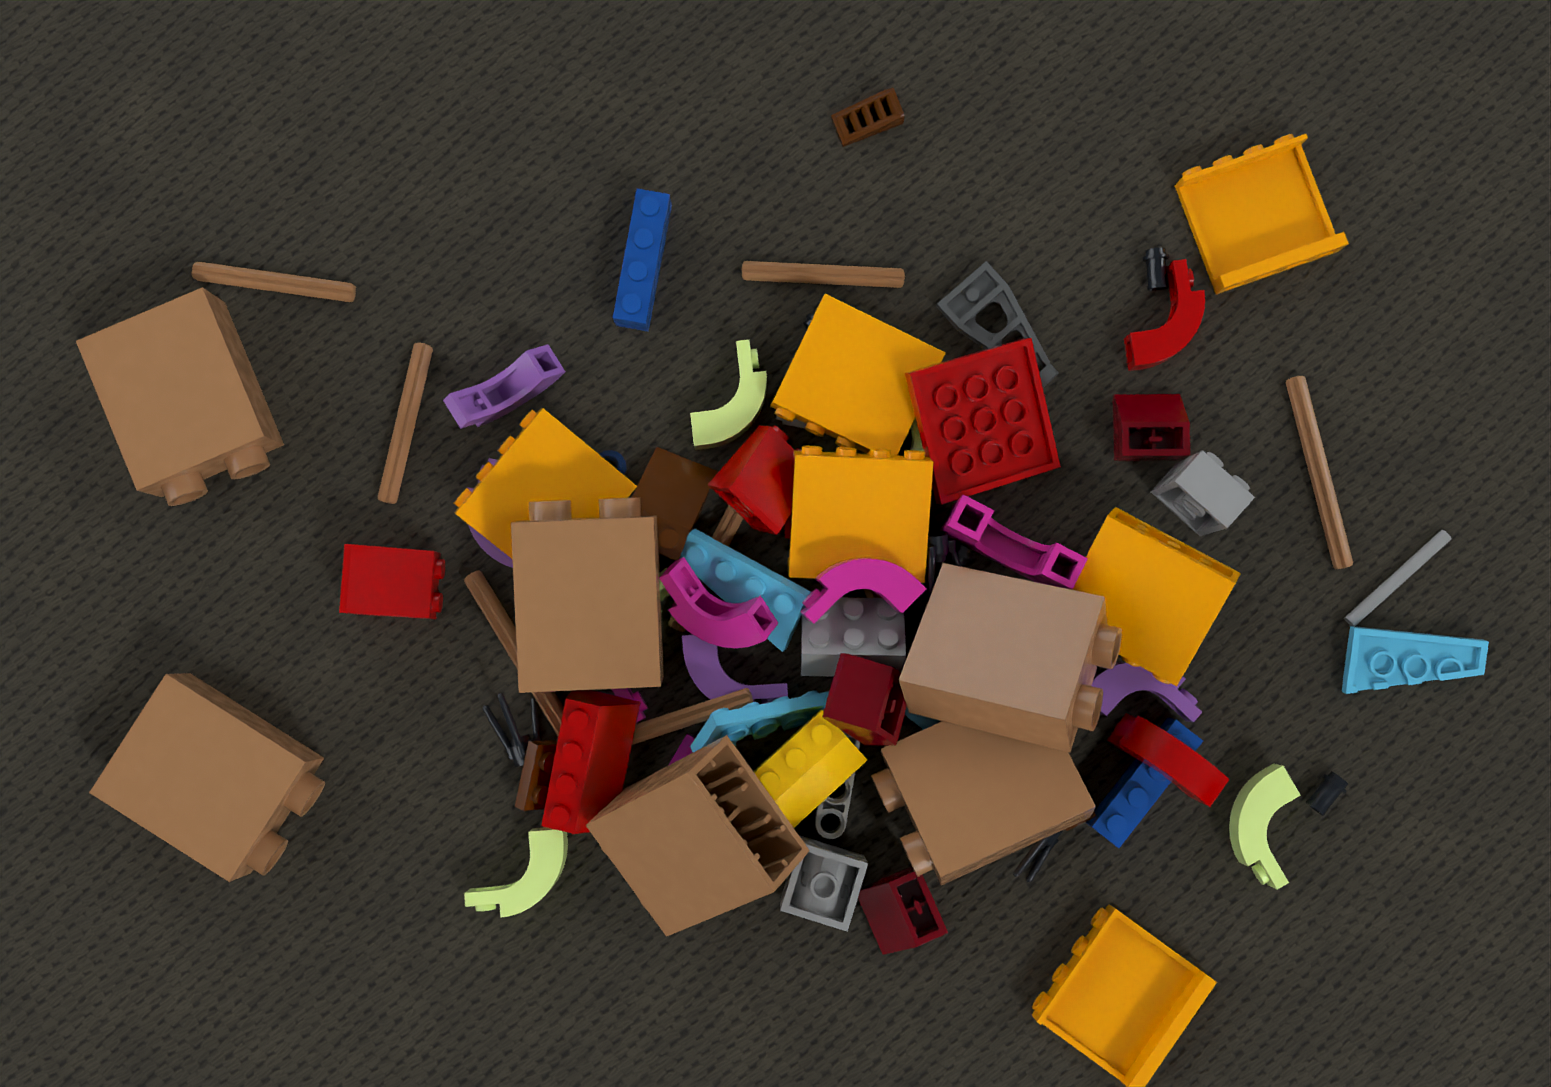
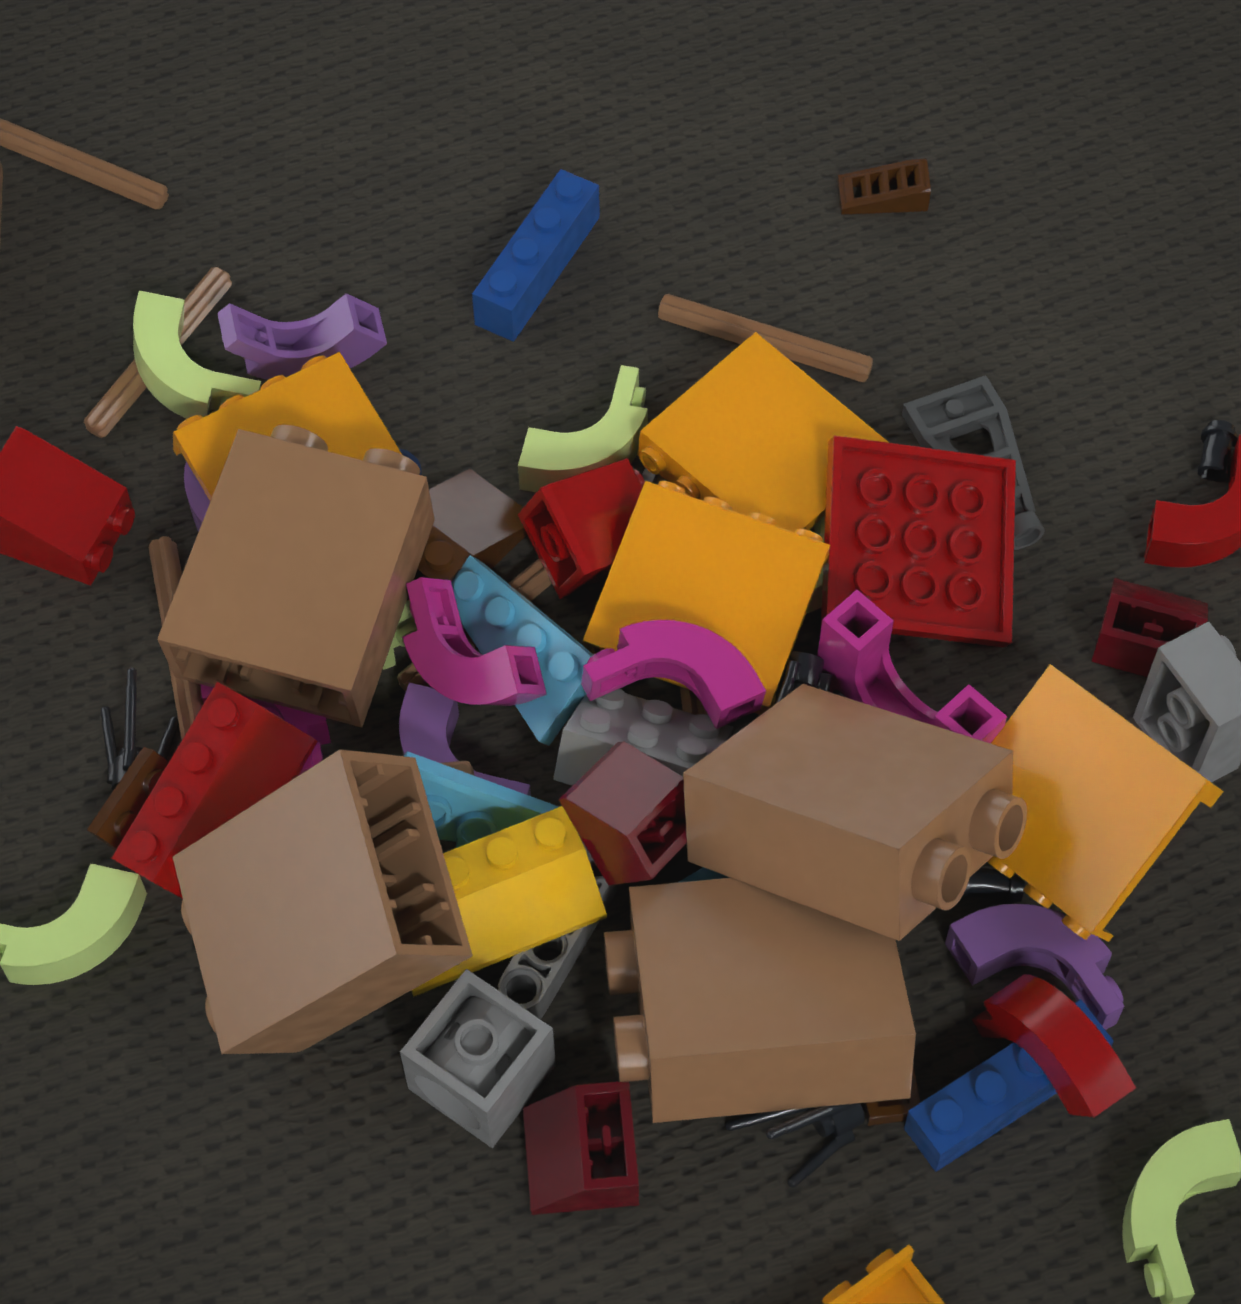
camera: 20 degrees right, 25 degrees down
(411, 437) = (167, 368): none -> yellowish green arch

